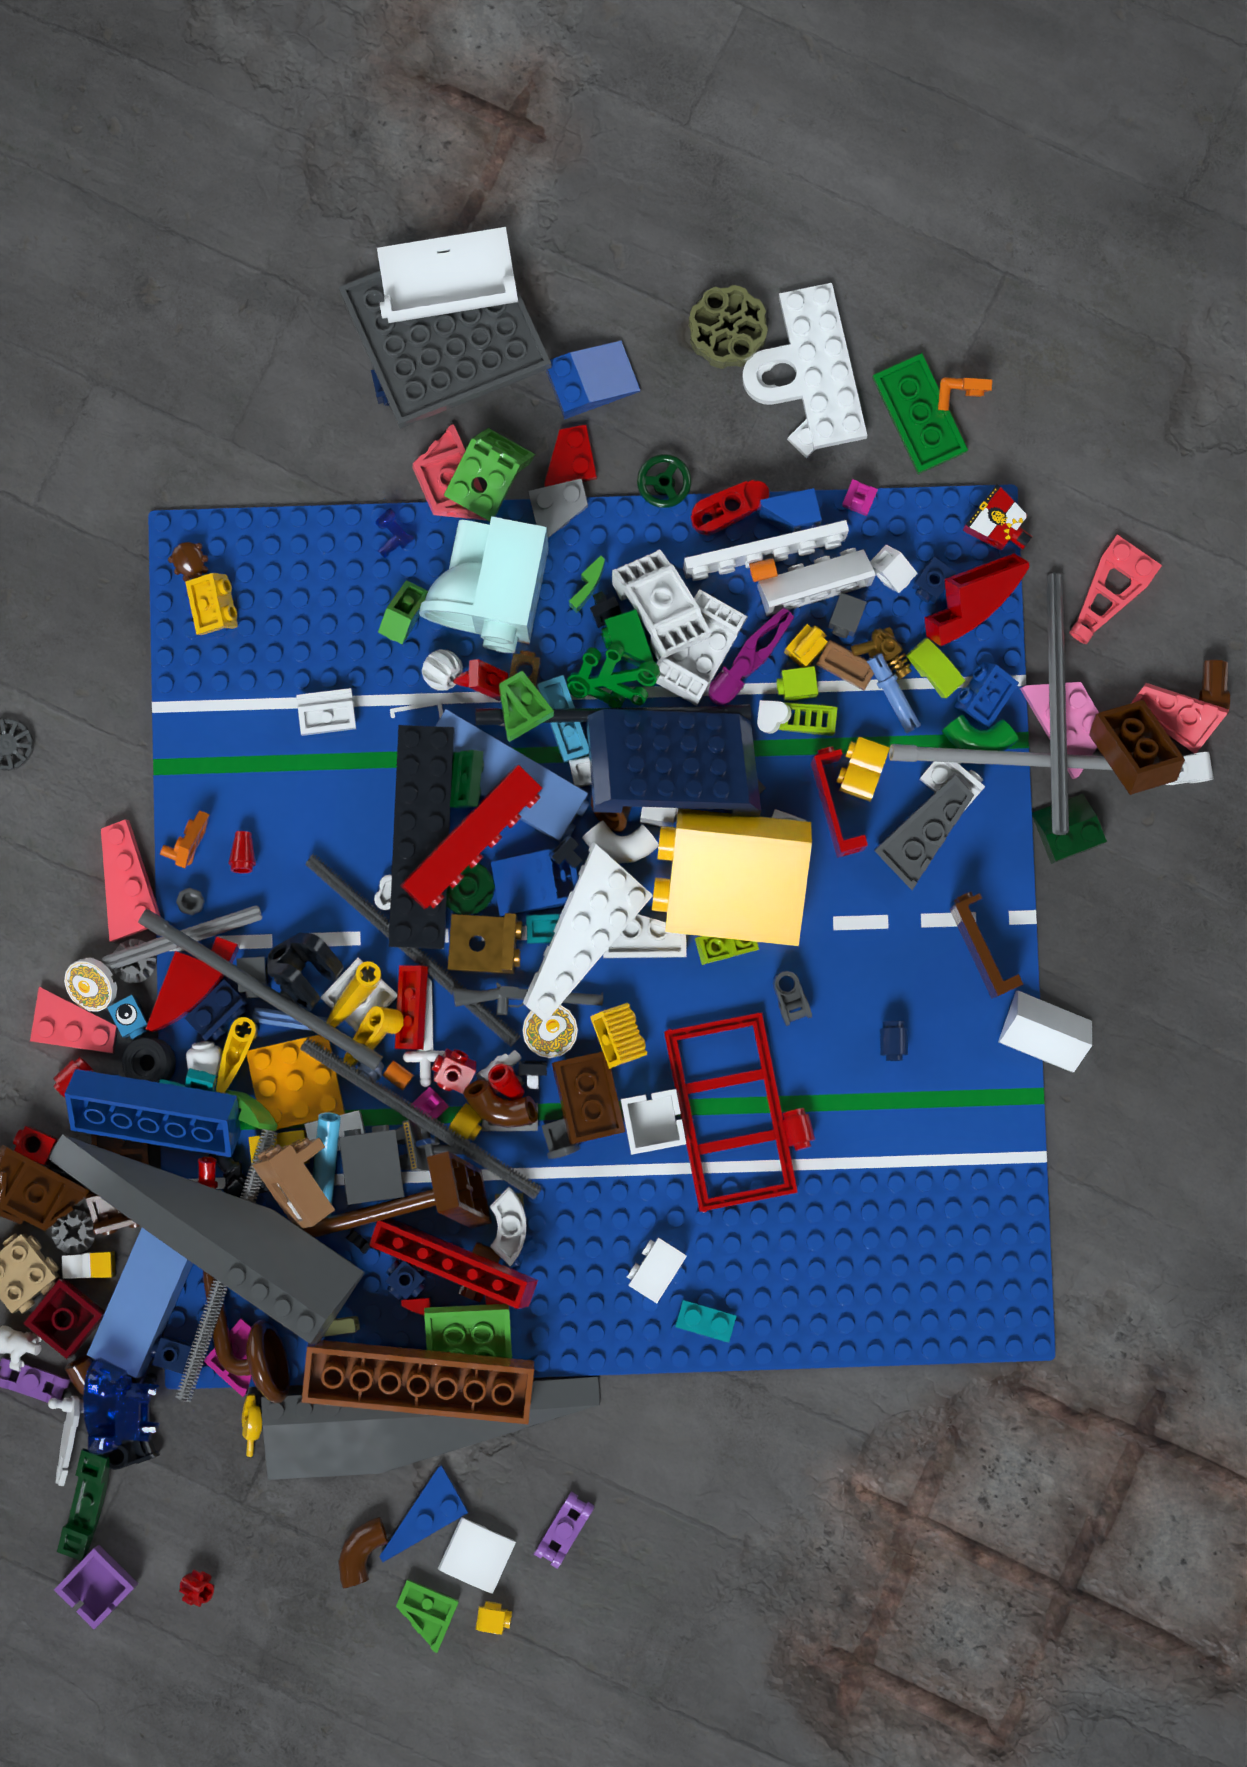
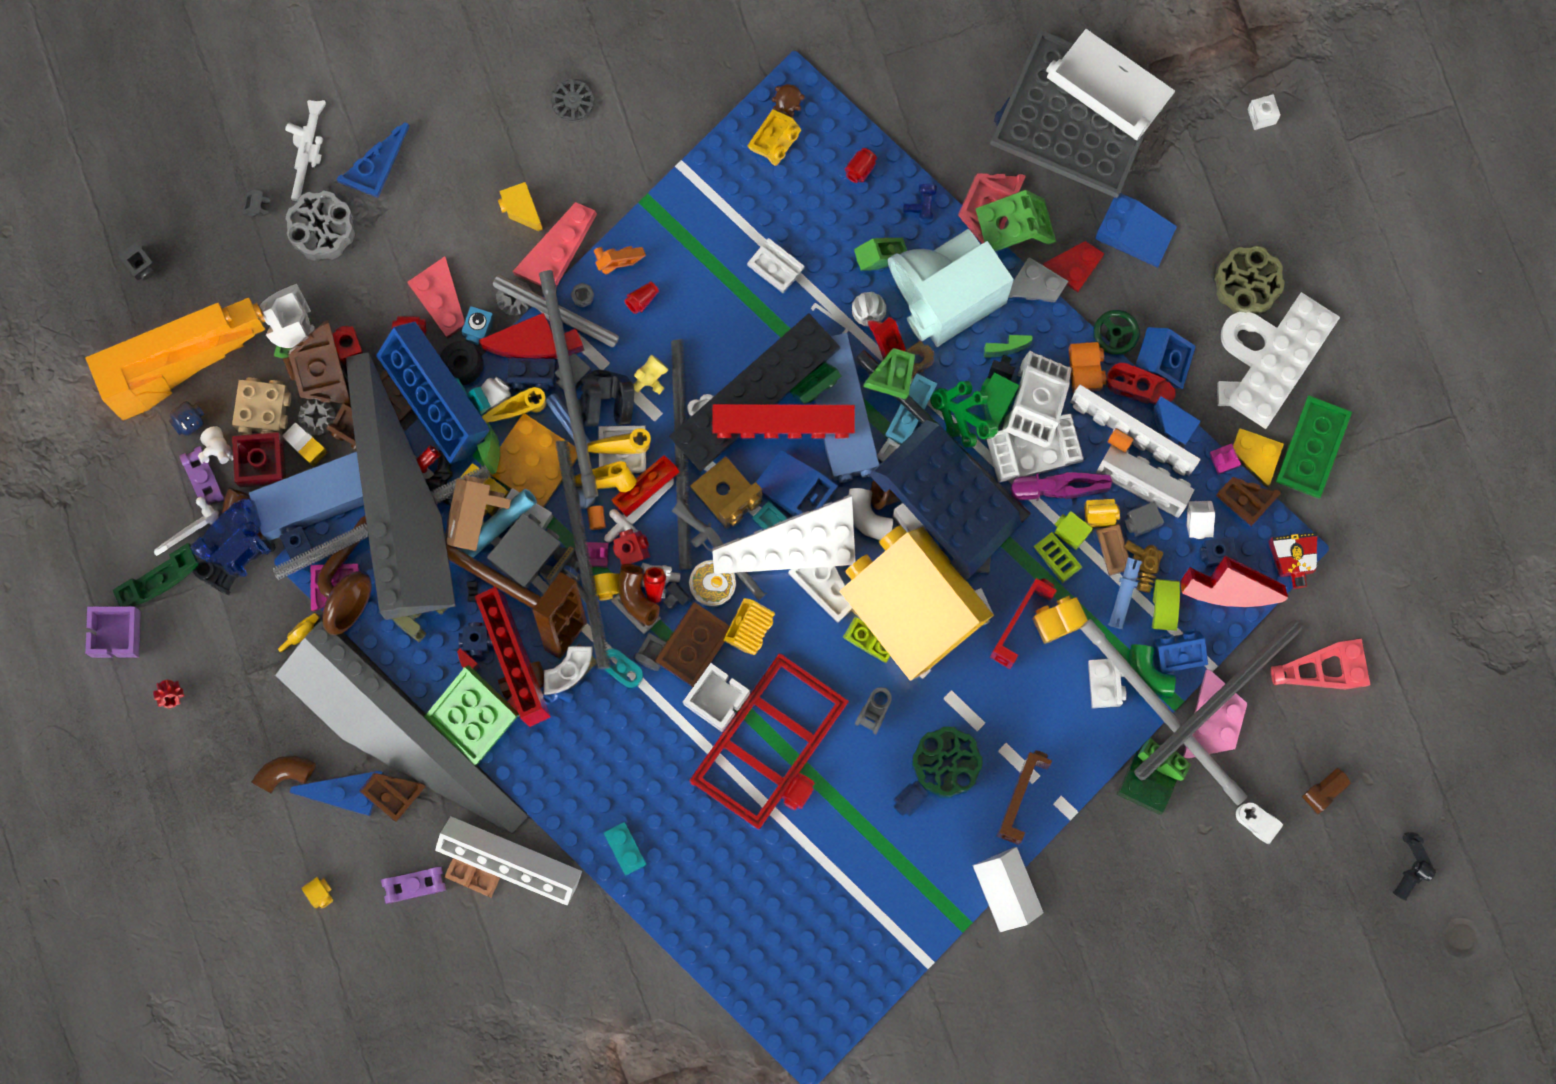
camera: 50 degrees right, 5 degrees down
(57, 880) = (519, 206): none -> yellow slope
(90, 984) = (475, 284): tile -> none
(309, 555) = (860, 165): none -> red brick
(316, 910) = (649, 373): none -> light yellow piece
(418, 1381) = (419, 703): dark orange brick -> none
(427, 1611) = (284, 848): bright green wing -> none
(468, 1476) = (391, 793): none -> reddish brown wing
(472, 892) = (751, 454): dark green tile -> none
(476, 1555) = (347, 845): white slope -> none
(549, 1176) = (622, 668): none -> teal plate
(565, 852) = (829, 484): black tile -> none
(595, 170) = (1263, 112): none -> white brick
(604, 1472) = (472, 877): none -> nougat slope
(621, 1430) = (508, 860): none -> white brick
(656, 1270) = (627, 787): white brick -> none
(670, 536) = (1086, 366): none -> orange brick
(724, 460) = (1166, 355): none -> blue slope
(771, 715) = (1038, 533): white tile -> none
(880, 465) = (1258, 454): none -> yellow wing
(911, 513) = (1247, 499): none -> reddish brown wing
(915, 996) = (969, 767): none -> dark green connector
(920, 836) = (1050, 694): dark grey wing -> none
(972, 386) = (1362, 460): orange plate -> none
(1078, 795) = (1174, 766): none -> bright green slope
(1136, 747) = (1239, 773): reddish brown brick -> none
(1181, 716) = (1286, 783): coral wing -> none

